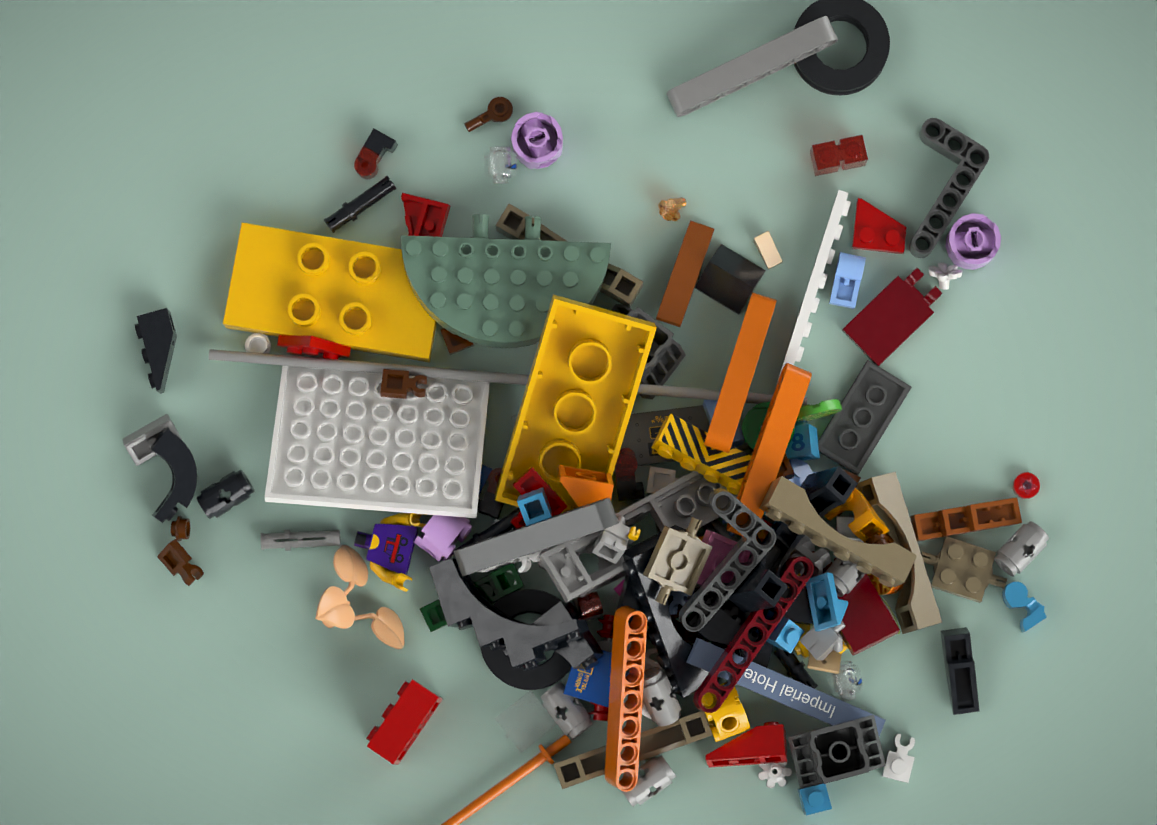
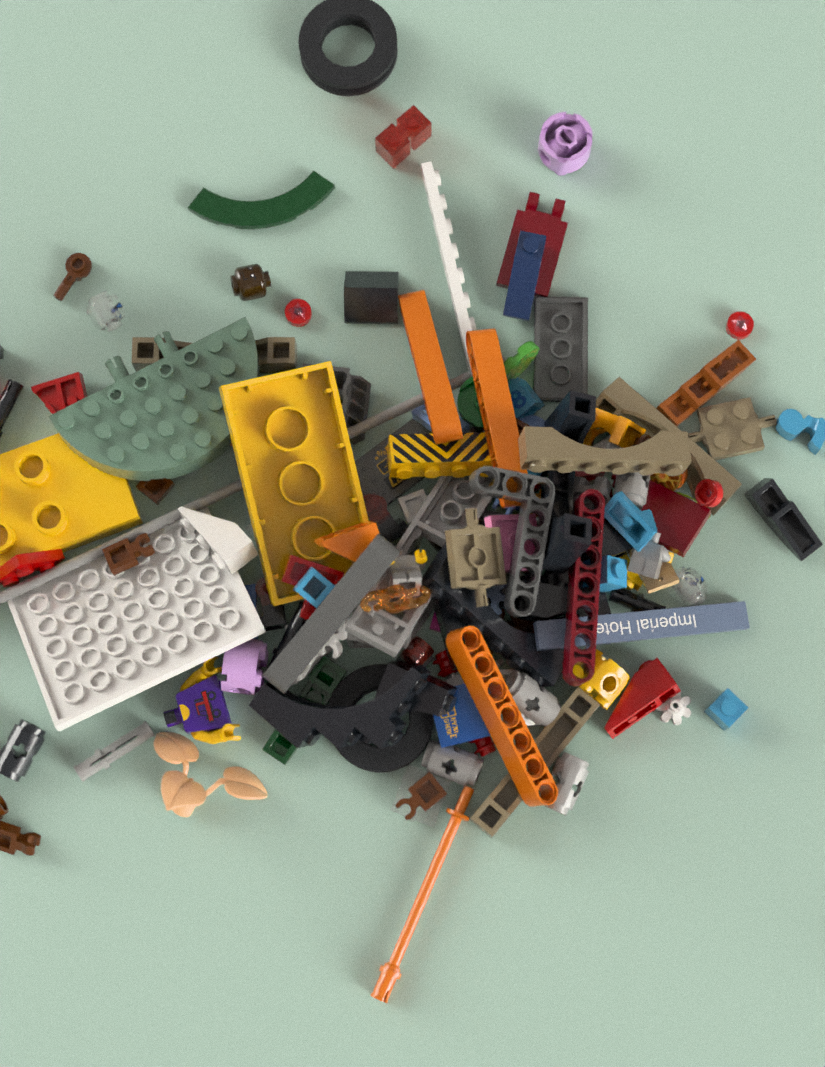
camera: 30 degrees left, 5 degrees down
(403, 721) = (307, 860): red slope -> none
(486, 419) = (223, 538): none -> white slope
(529, 722) = (424, 793): none -> reddish brown plate
(537, 140) = (127, 271): lavender brick -> none
(601, 562) = (384, 595): none -> clear orange piece
(635, 209) = (250, 282): none -> dark brown head
(660, 257) = (298, 312): none -> red tile
(670, 208) = (282, 264): clear orange plate -> none
(681, 152) = (262, 212): none -> dark green tile
(685, 274) = (328, 313): dark orange slope -> none
(752, 66) = (281, 102): light grey beam -> none
(767, 250) = (389, 252): tan piece -> none
(837, 752) = (720, 654): dark grey slope -> none
(847, 280) = (475, 238): light blue plate -> none
(867, 339) = (524, 275): none -> dark blue slope
(877, 230) = (475, 183): red wing -> none
(899, 763) = (780, 633): white plate -> none
(906, 615) = (708, 493): none -> red tile
(945, 274) = (557, 186): white plant -> none
(952, 188) = (520, 109): dark grey beam -> none
(1021, 548) = (770, 380): light grey piece -> none

